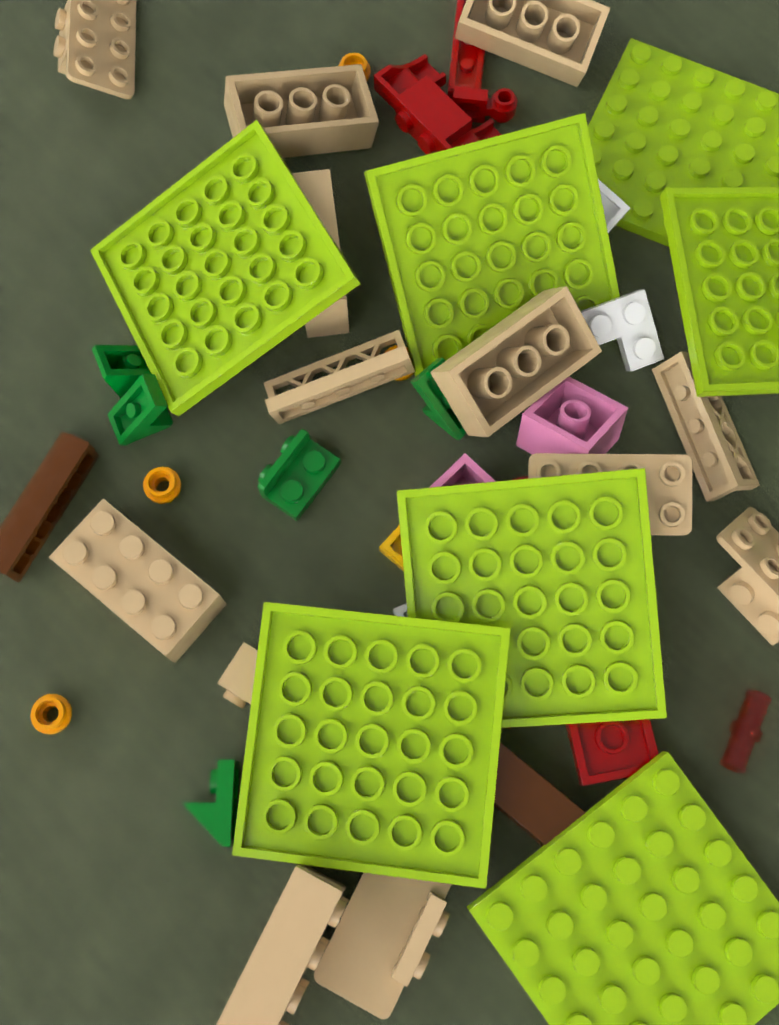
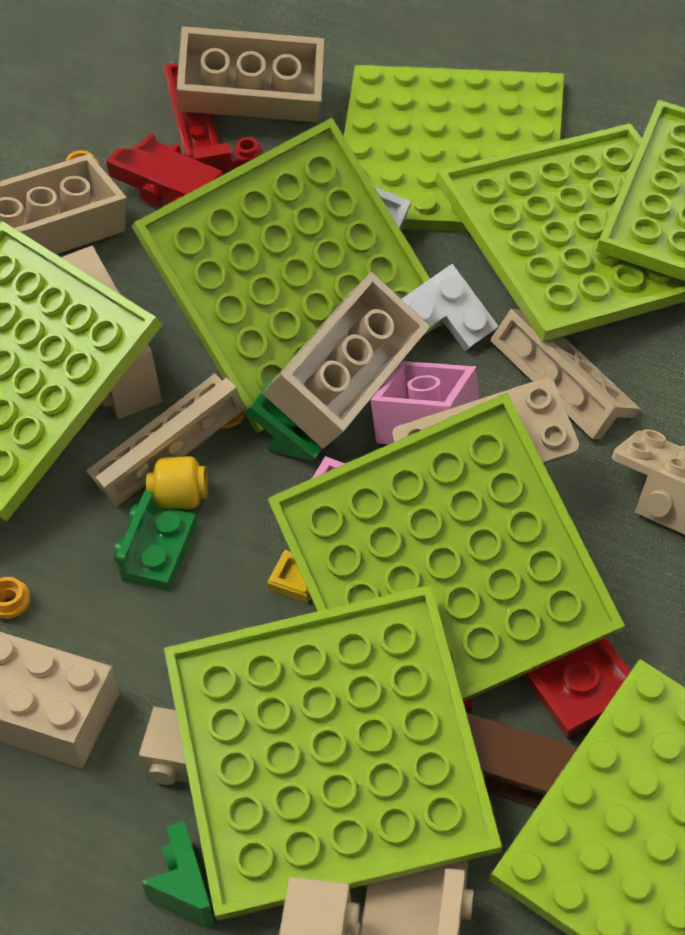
camera: 15 degrees left, 20 degrees down
(334, 425) = (178, 483): none -> yellow head

